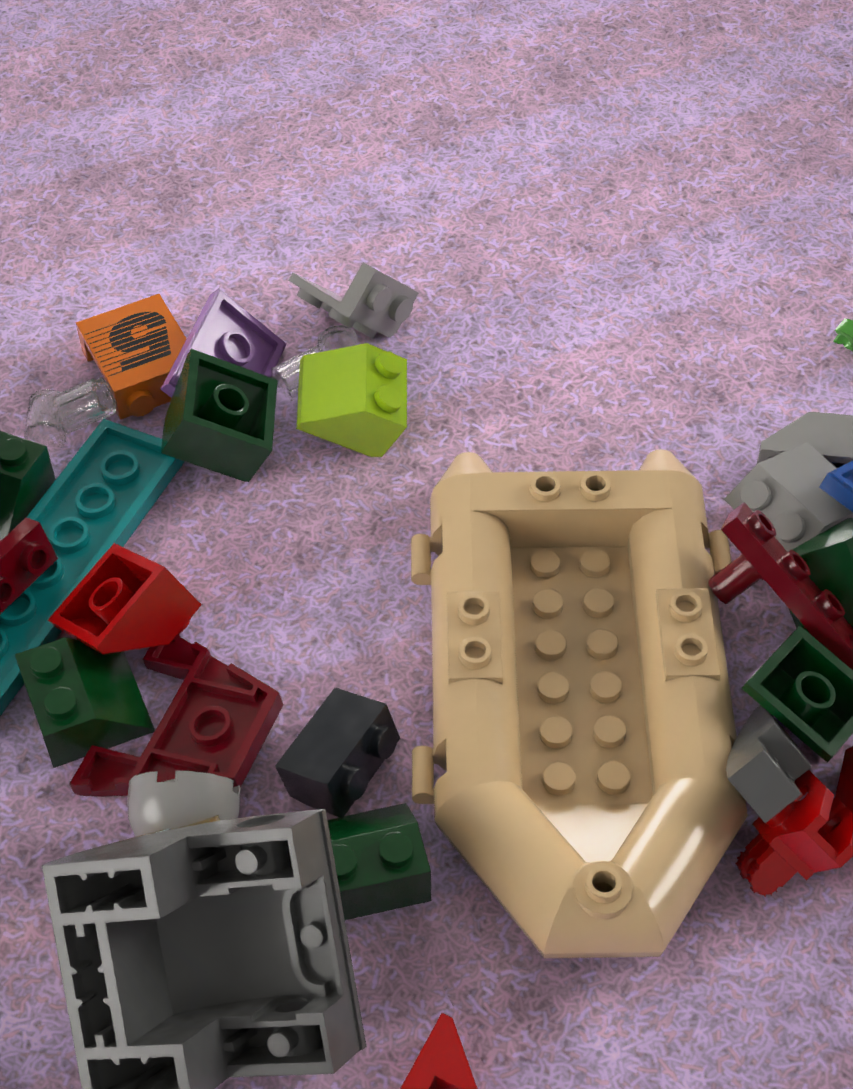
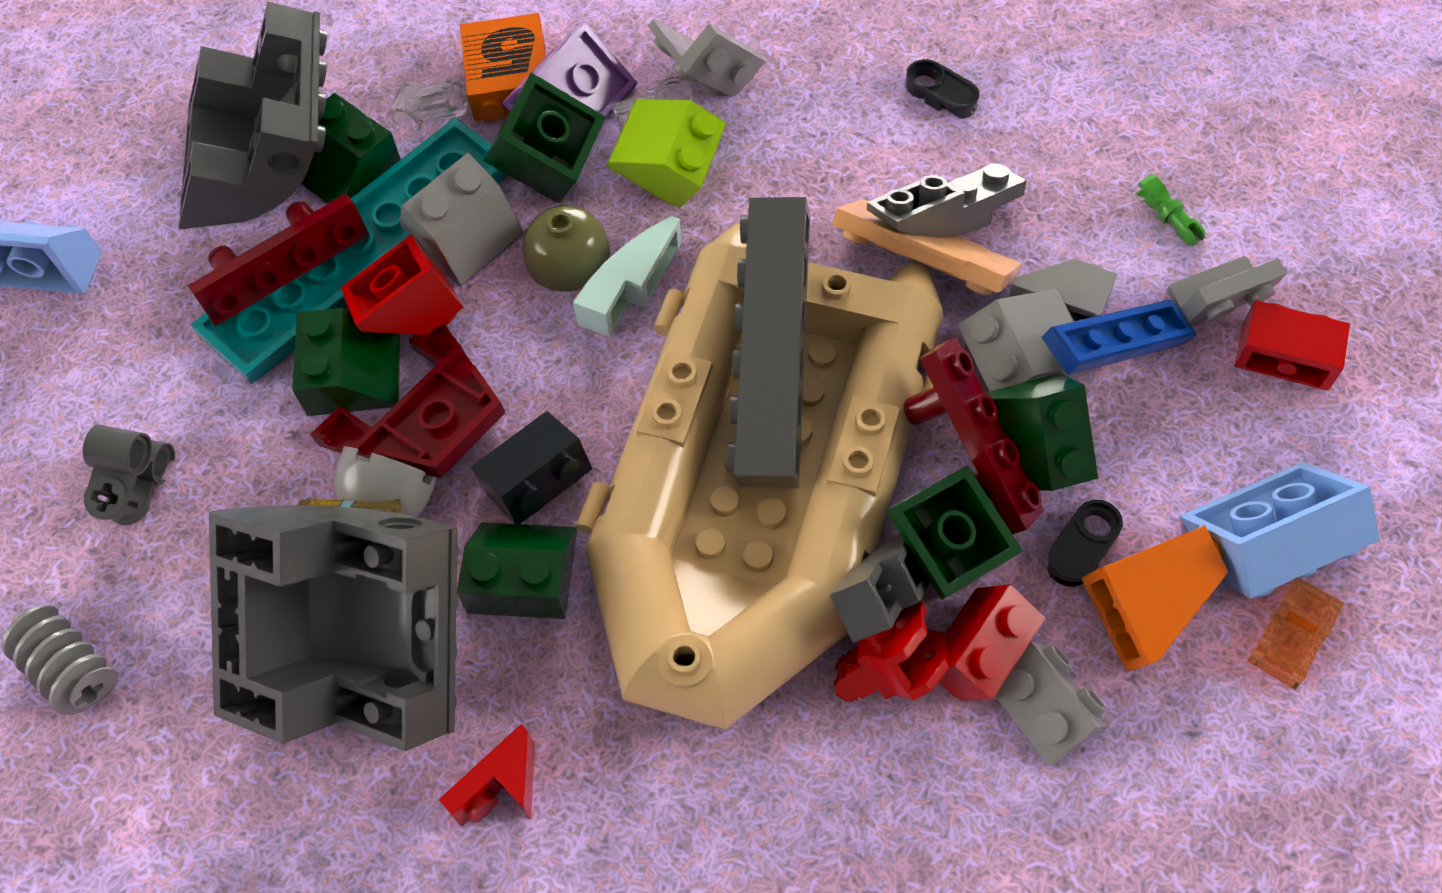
camera: 20 degrees right, 10 degrees up
(159, 513) = (461, 219): none -> light grey slope
(279, 523) = (564, 247): none -> olive cylinder
(359, 537) = (628, 277): none -> light aqua slope
(558, 559) = (771, 343): none -> dark grey brick
(610, 283) = (947, 92): none -> black piece
(655, 433) = (952, 255): none -> light nougat piece
(666, 389) = (948, 209): none -> dark grey slope

